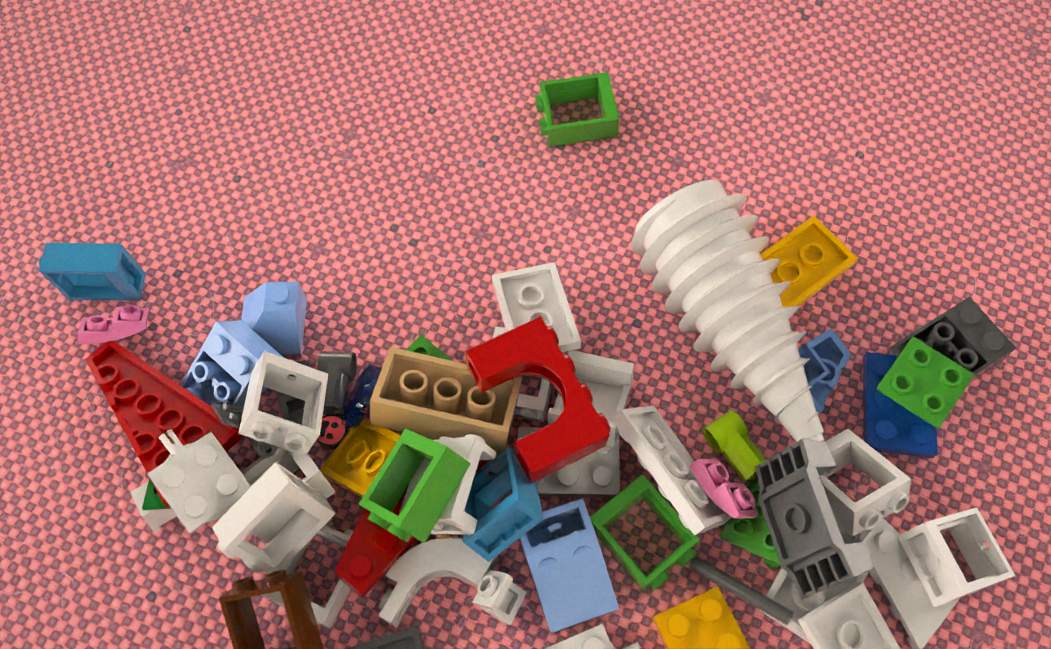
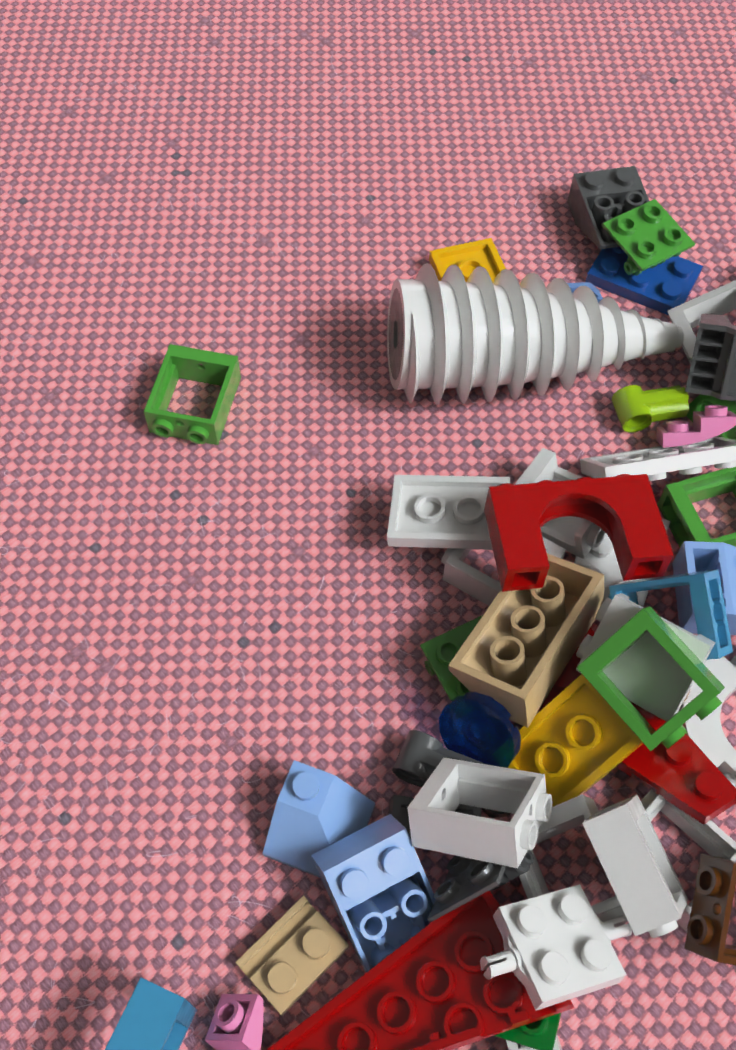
camera: 75 degrees left, 5 degrees down
(178, 337) = (292, 955): none -> tan plate

